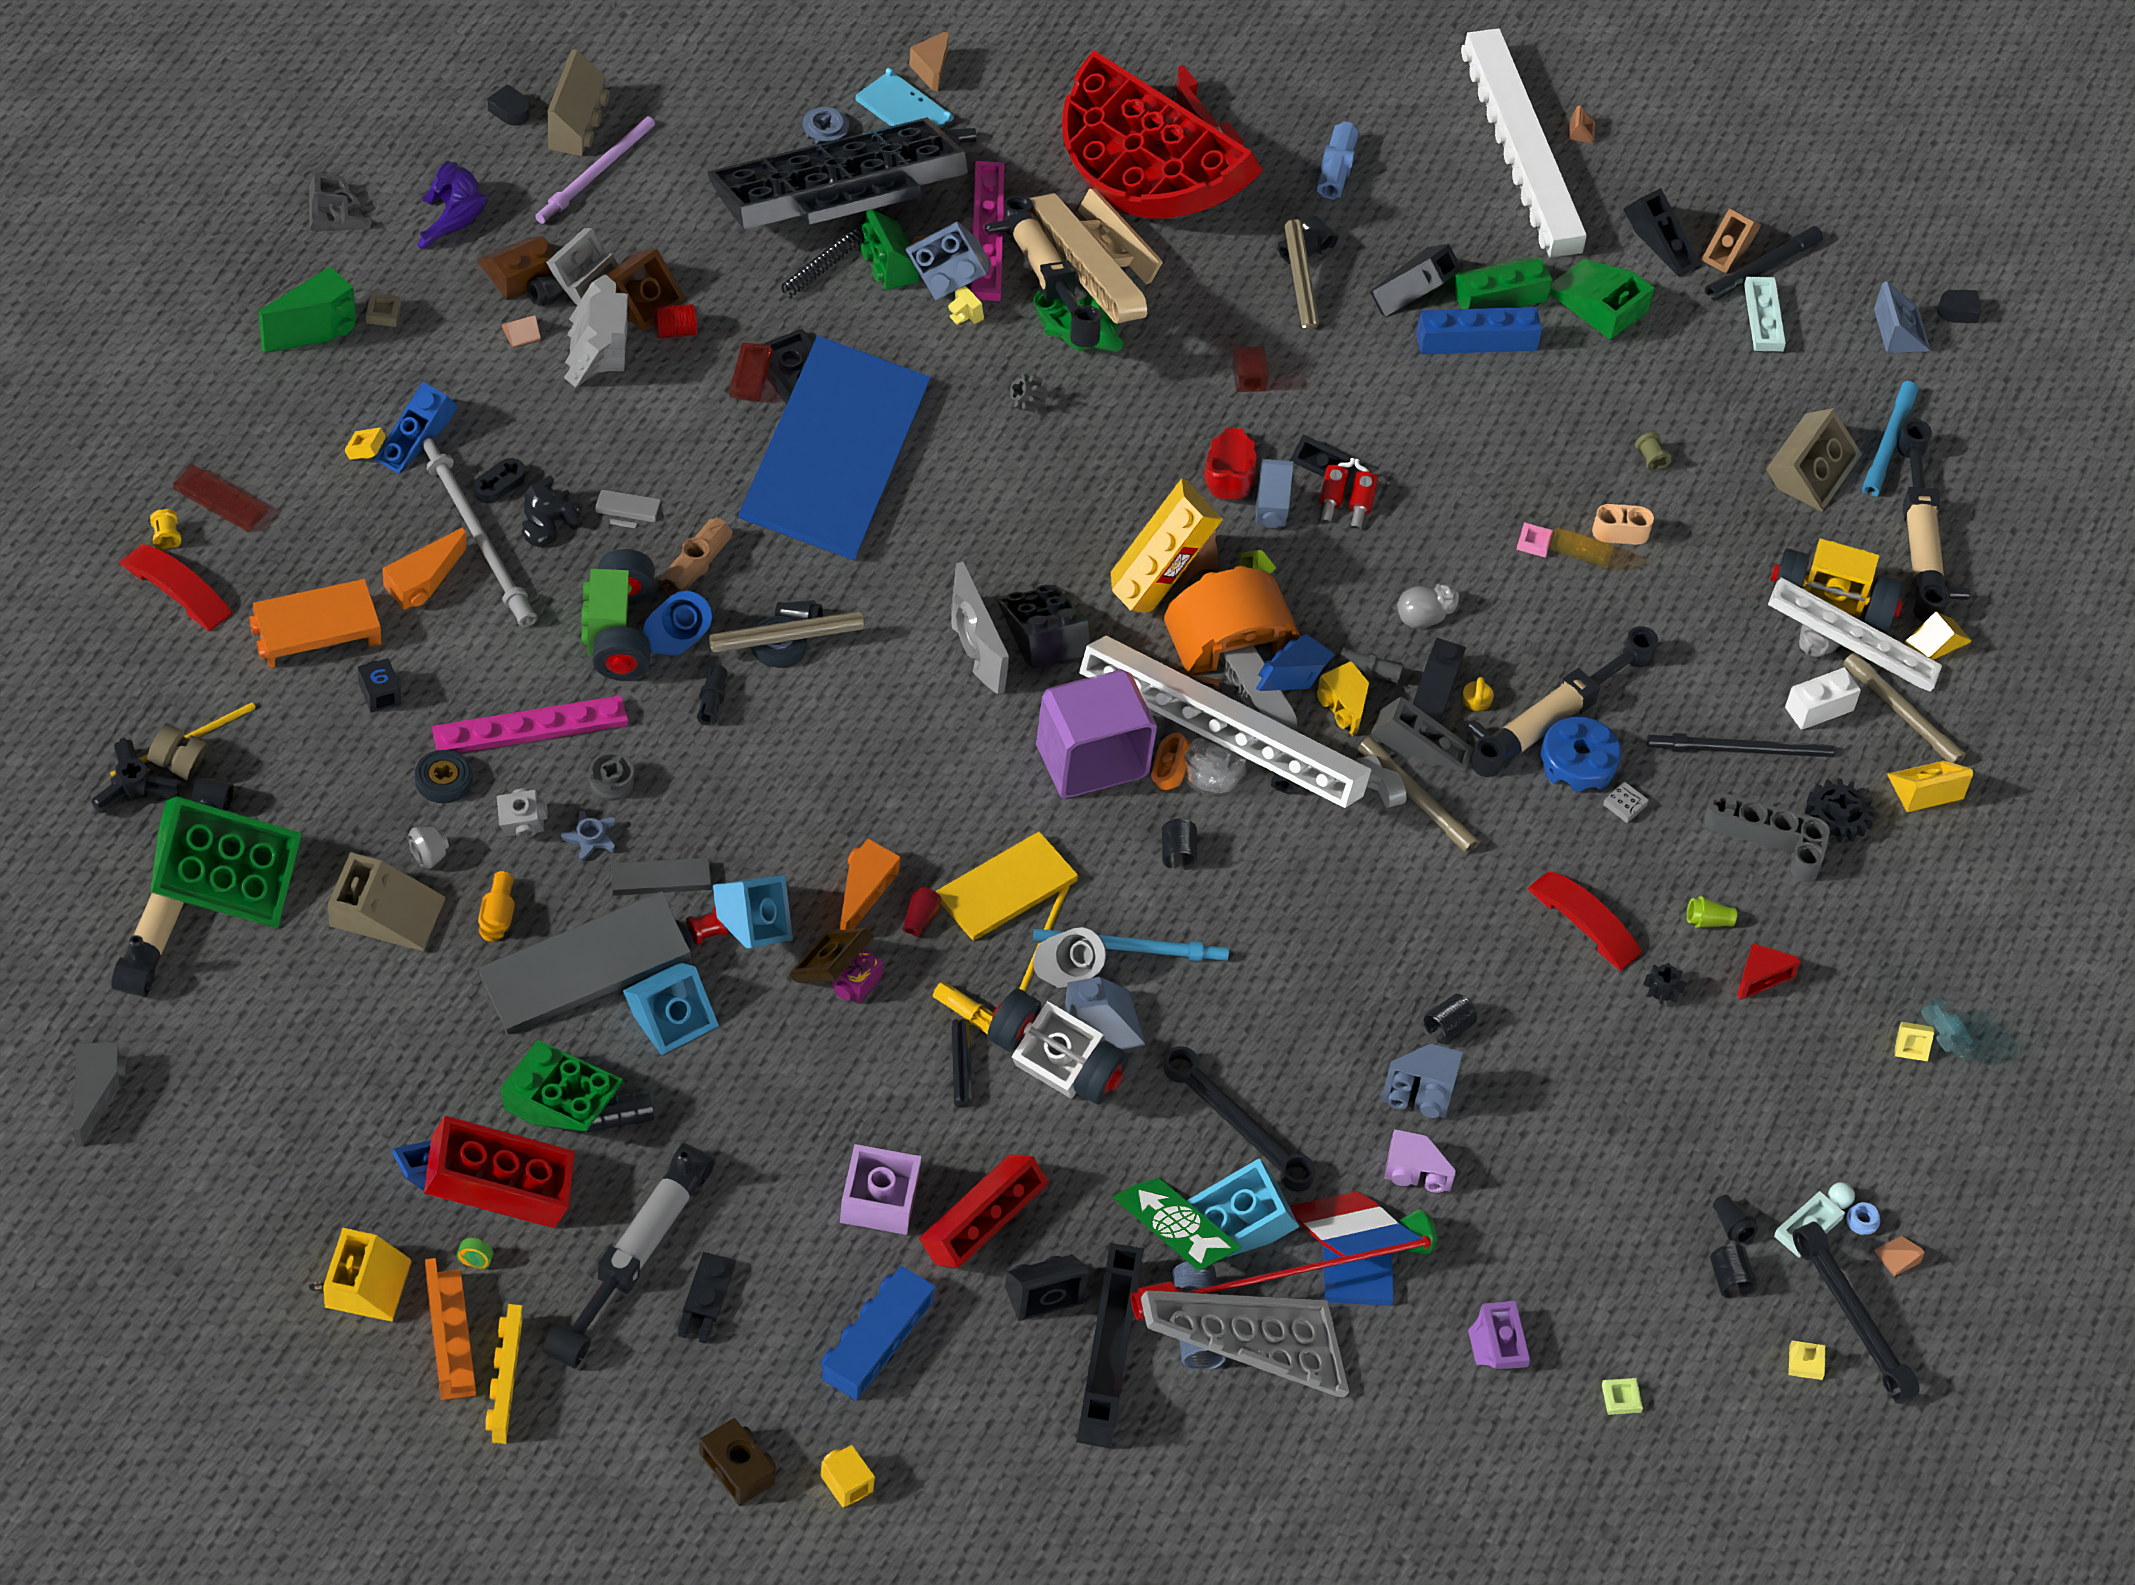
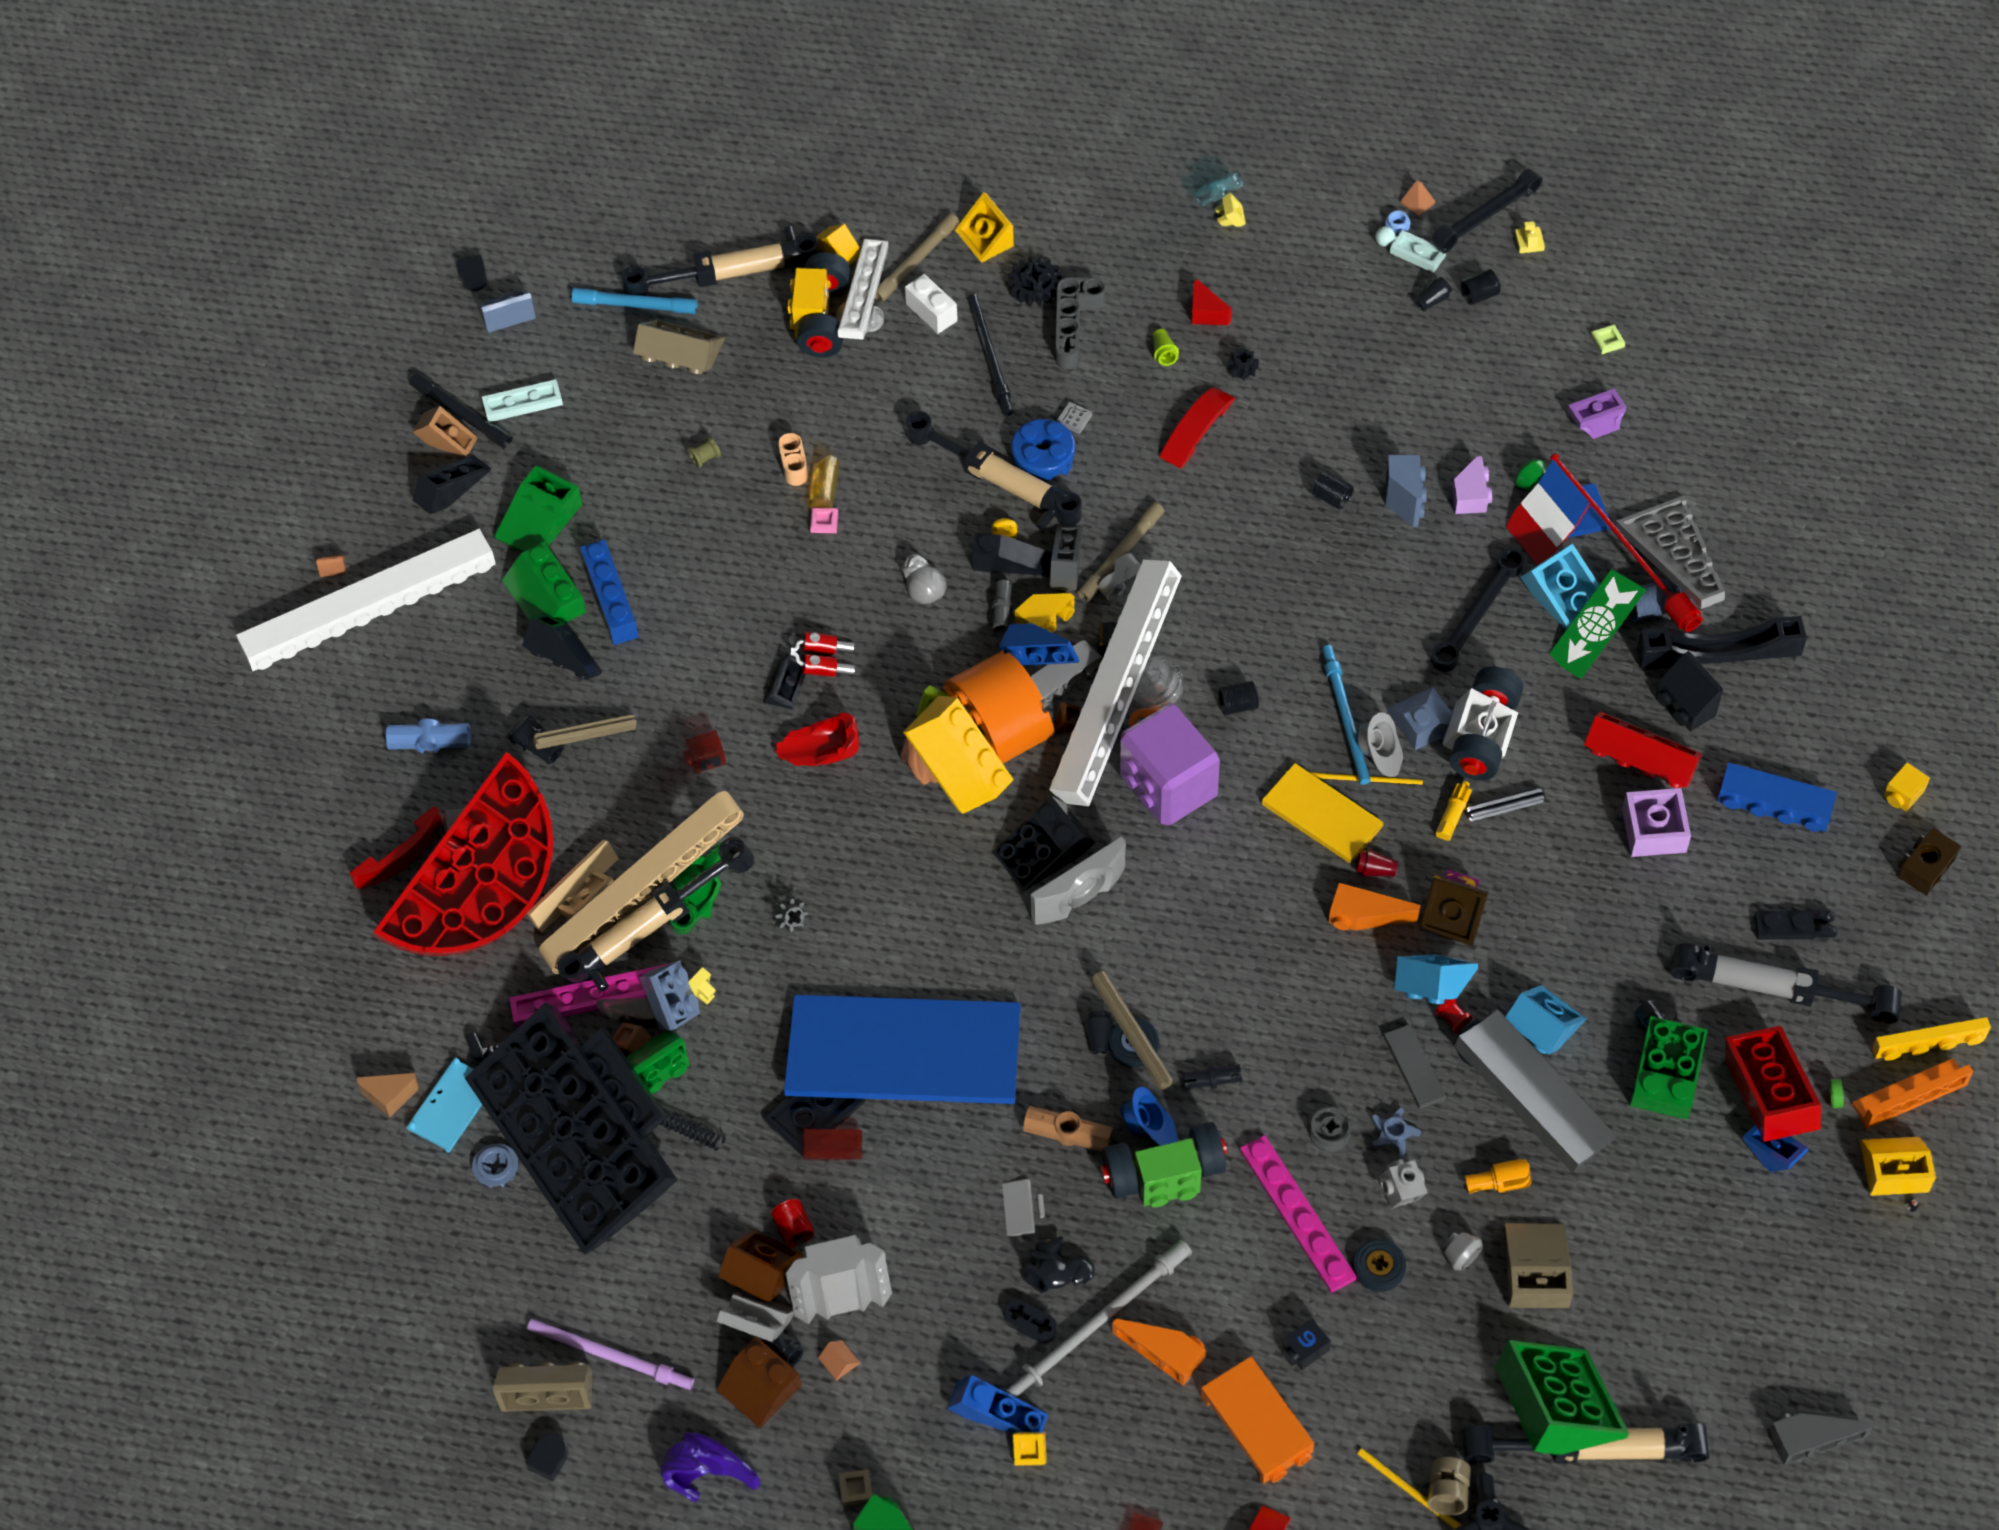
camera: 95 degrees left, 5 degrees up
(1273, 493) = (853, 699): sand blue slope -> none

